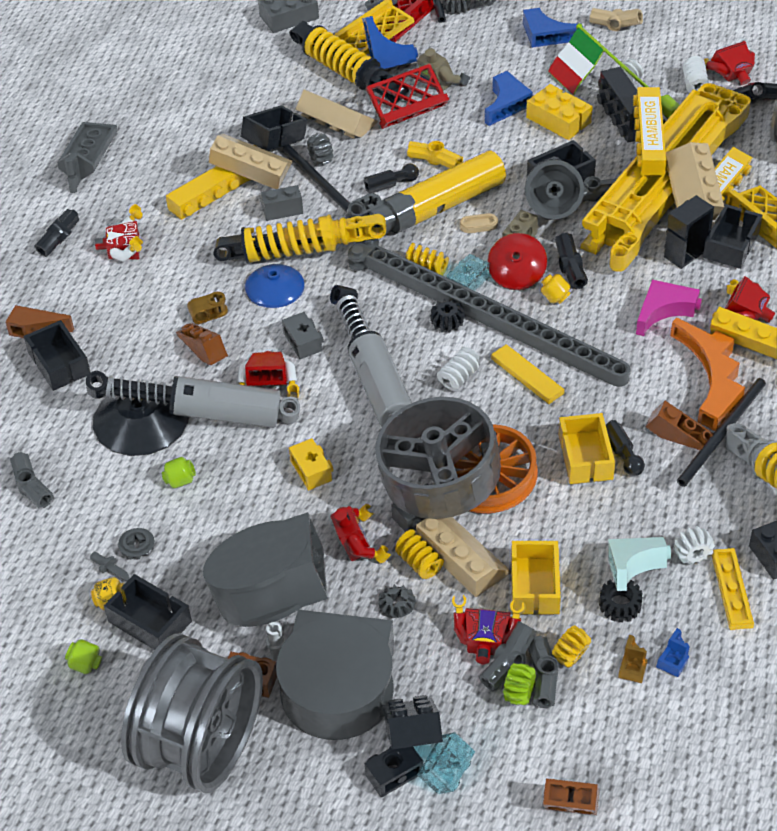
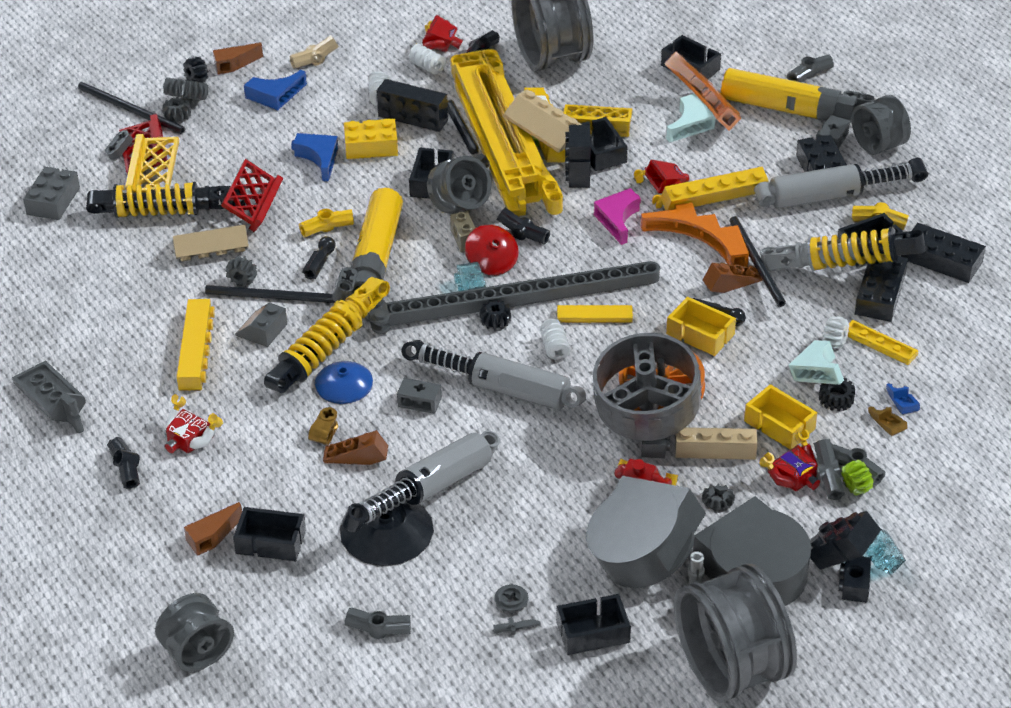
camera: 50 degrees left, 5 degrees down
(83, 656) = (588, 683): lime head -> none
(104, 590) = (546, 637): yellow head -> none
(178, 472) = (473, 536): lime head -> none
(249, 161) = (210, 310): tan slope -> none
(268, 369) = (435, 430): red torso -> none
(273, 128) = (185, 286): black piece -> none
(311, 464) = (549, 464): yellow brick -> none
(385, 51) = (182, 171): blue arch -> none
(418, 554) = (695, 459): yellow piece -> none
(430, 261) = (433, 287): yellow piece -> none
(441, 69) = (236, 156): dark tan torso -> none
(478, 223) = (422, 246): tan tile -> none
(555, 288) = (540, 249): yellow head -> none
(571, 646) = (853, 434): yellow gear -> none
(571, 796) = (966, 508): dark orange brick -> none
(581, 57) = (336, 99): flag -> none
(650, 131) = (474, 105): yellow brick -> none

